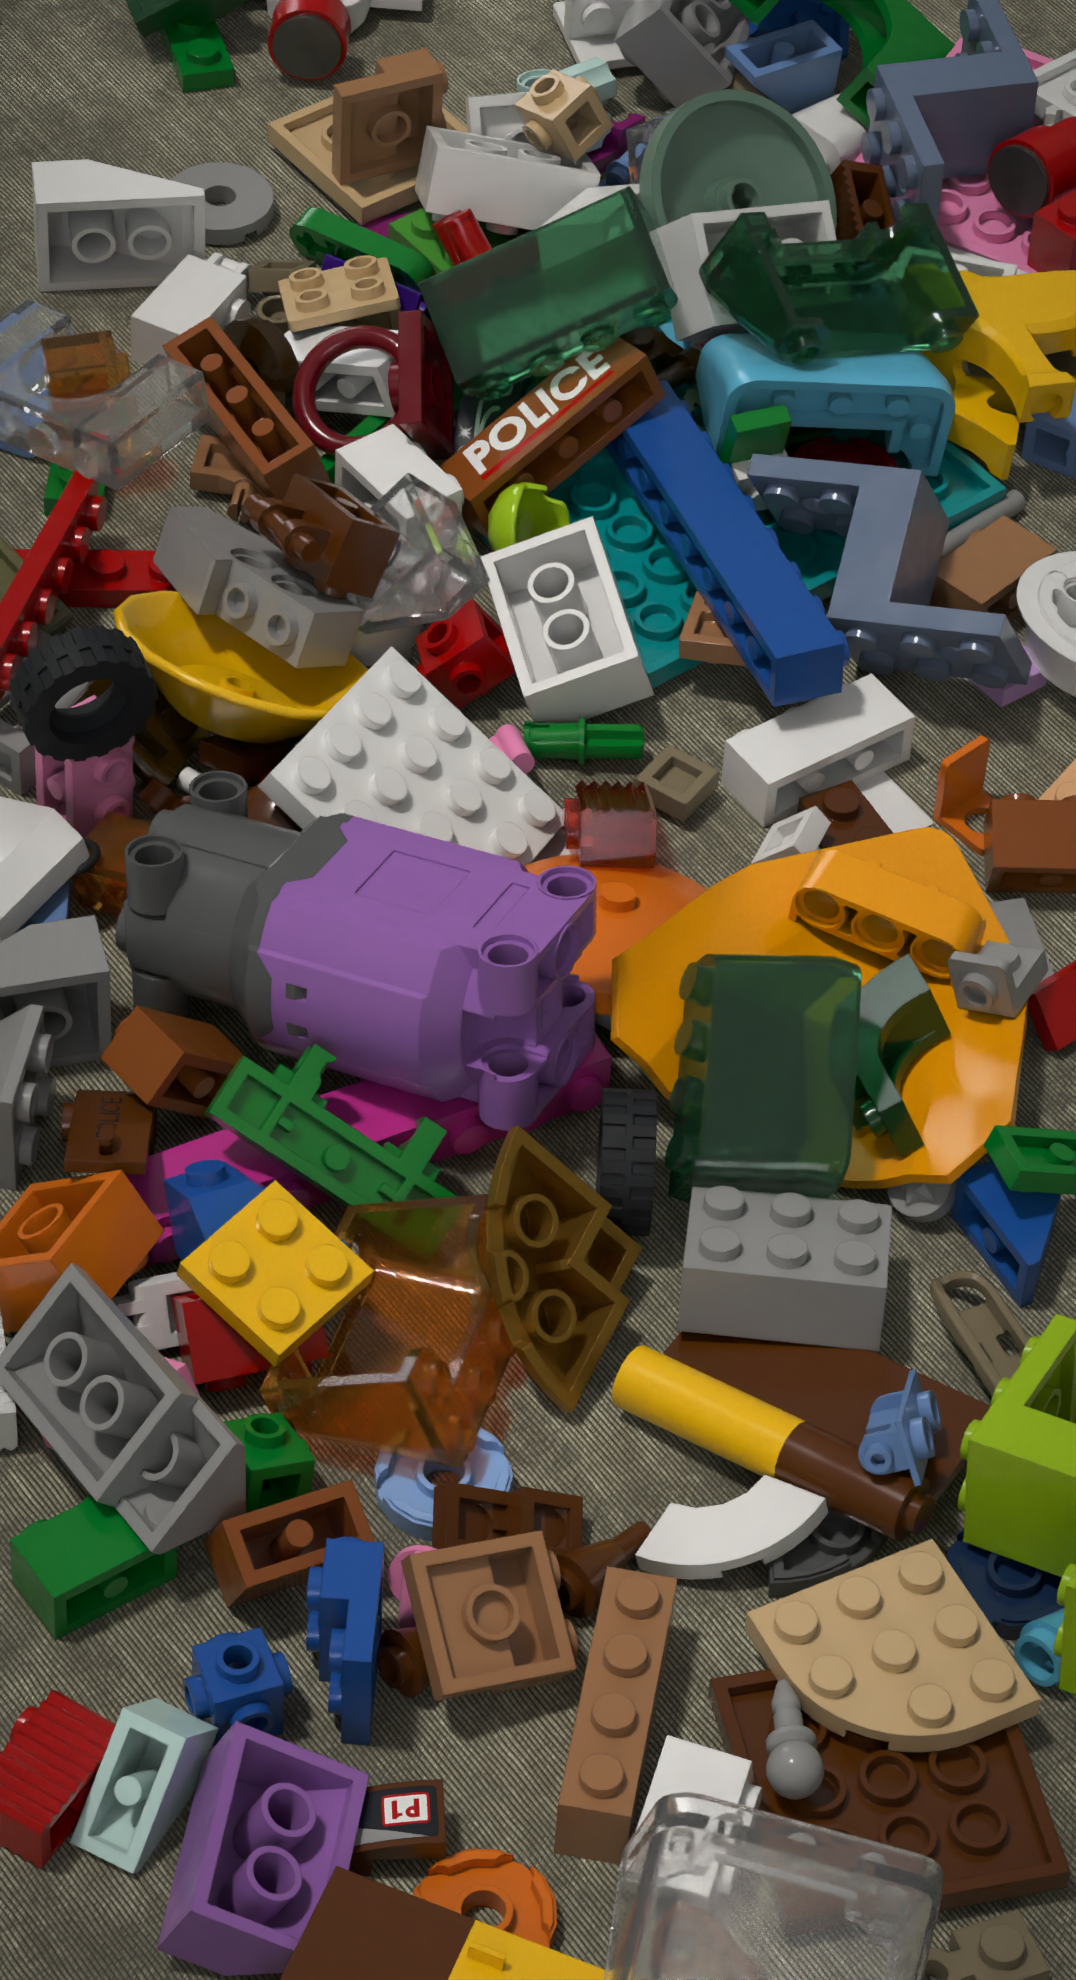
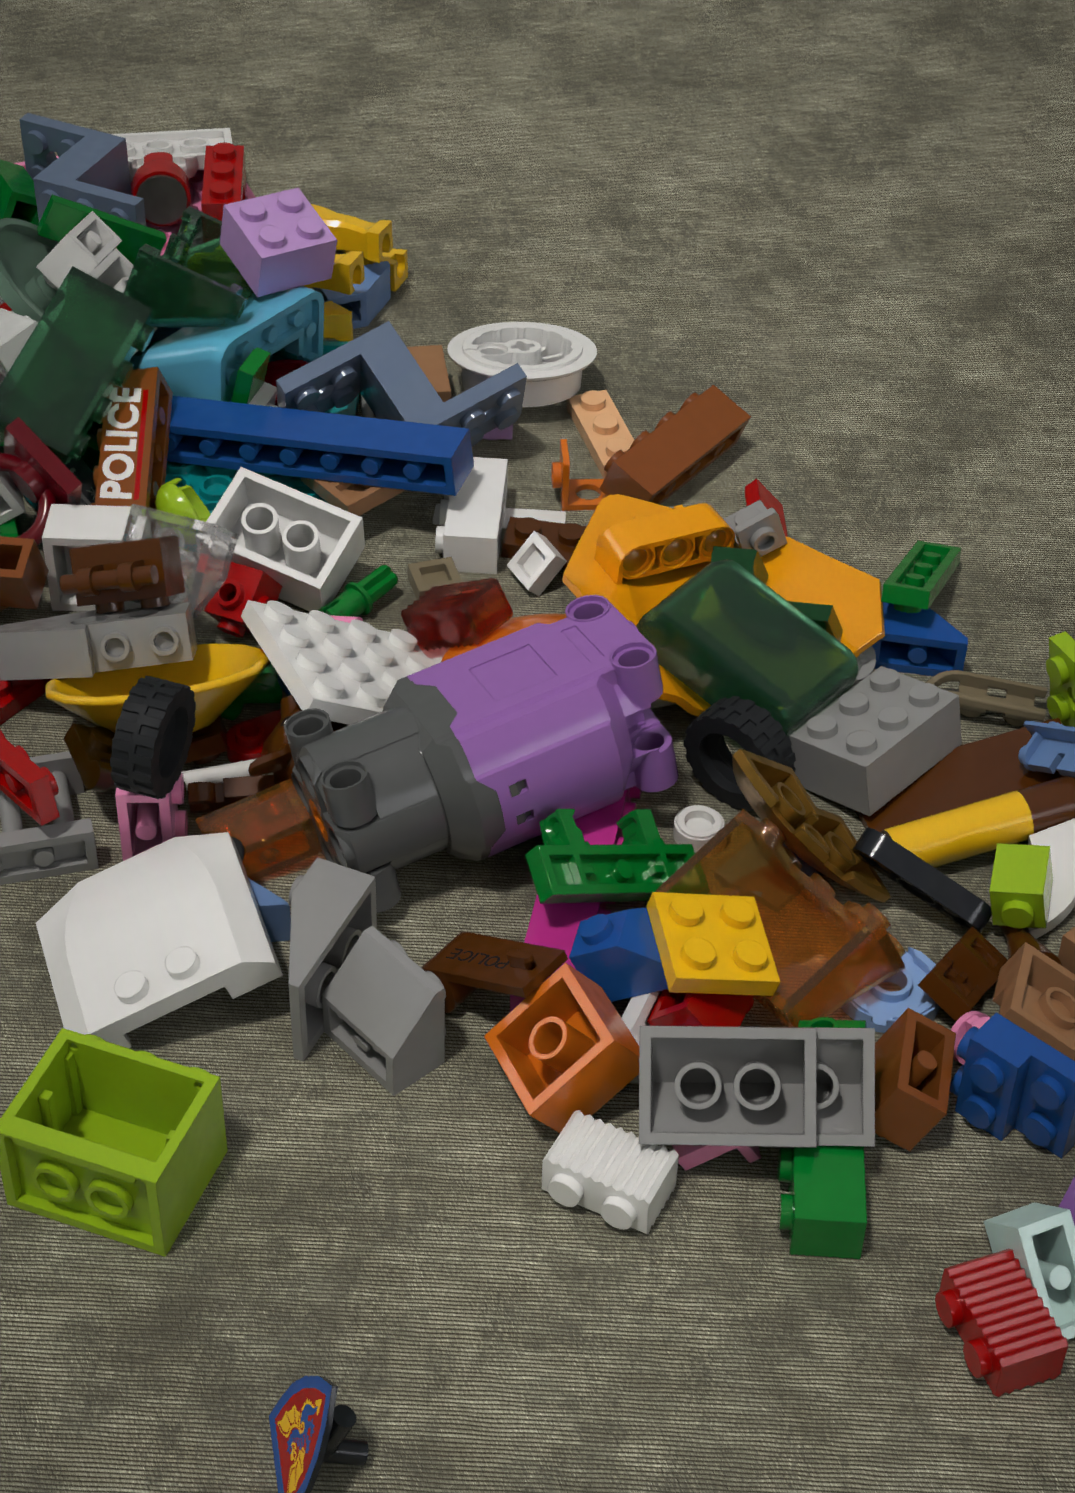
camera: 50 degrees left, 5 degrees down
(171, 1060) = (453, 904): dark orange brick -> none
(239, 1682) = (1003, 1172): blue brick -> none
(594, 1416) = (922, 880): none -> black beam
(659, 1500) = (1021, 885): none -> lime brick
(787, 176) = (82, 248): none -> white brick
(848, 164) = (63, 215): none -> green tile
(949, 304) = (278, 241): none -> lavender brick

